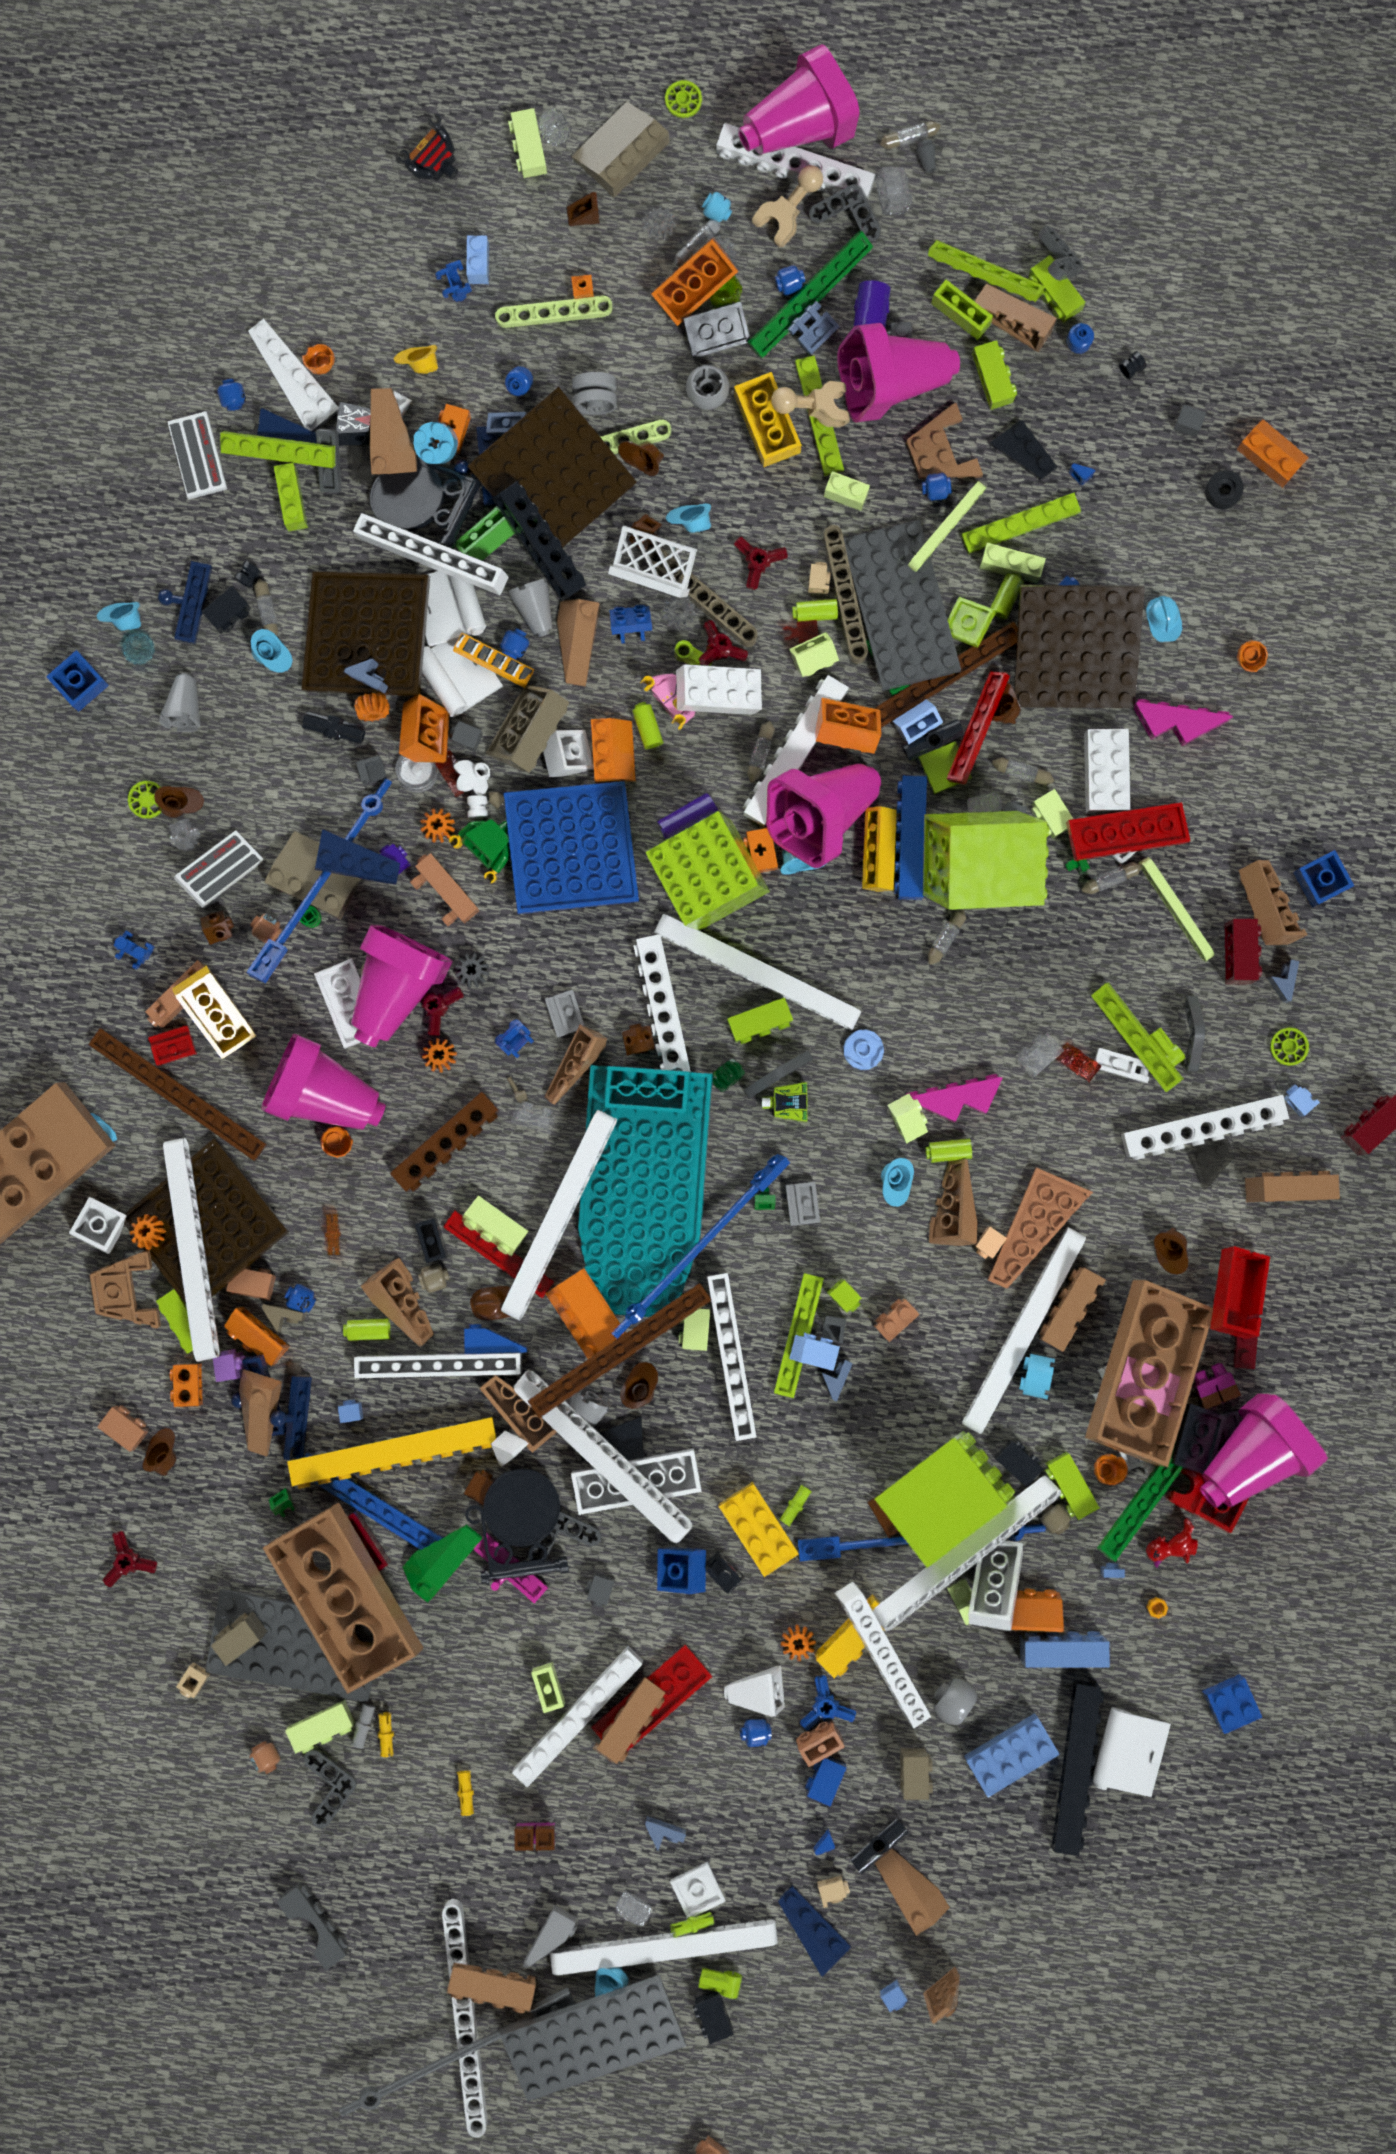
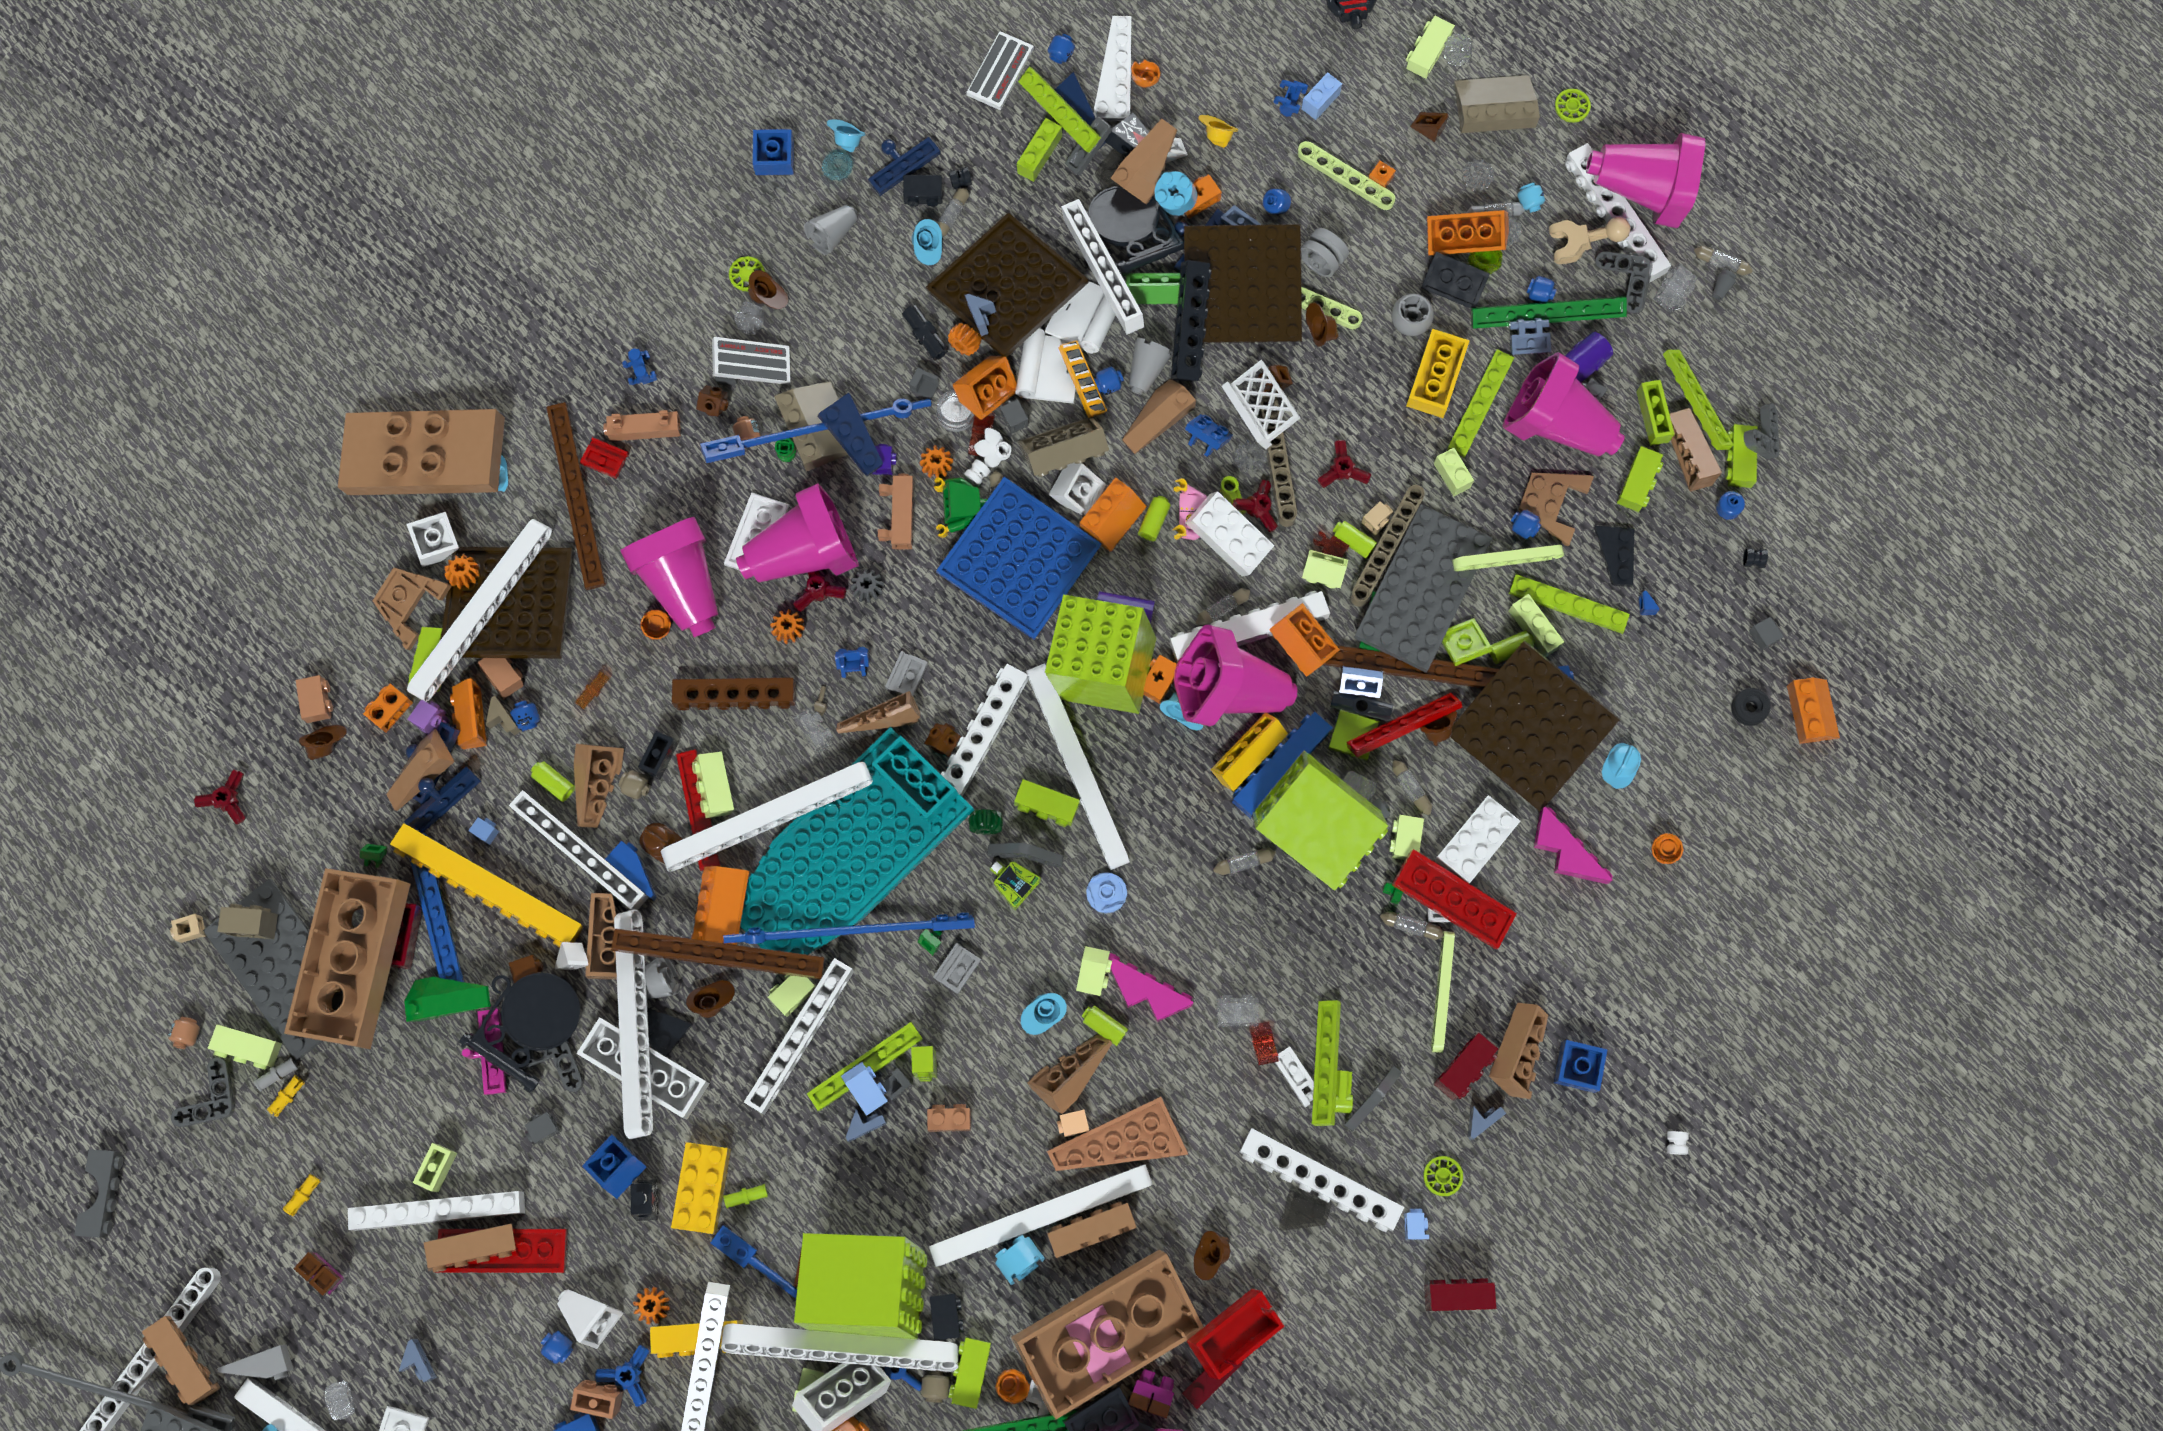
camera: 40 degrees right, 10 degrees down
(214, 1012) = (653, 456): brick -> none
(692, 517) = (1319, 397): medium azure piece -> none
(819, 403) = (1486, 391): tan piece -> none
(1292, 1188) = (1351, 1289): medium nougat wedge -> none

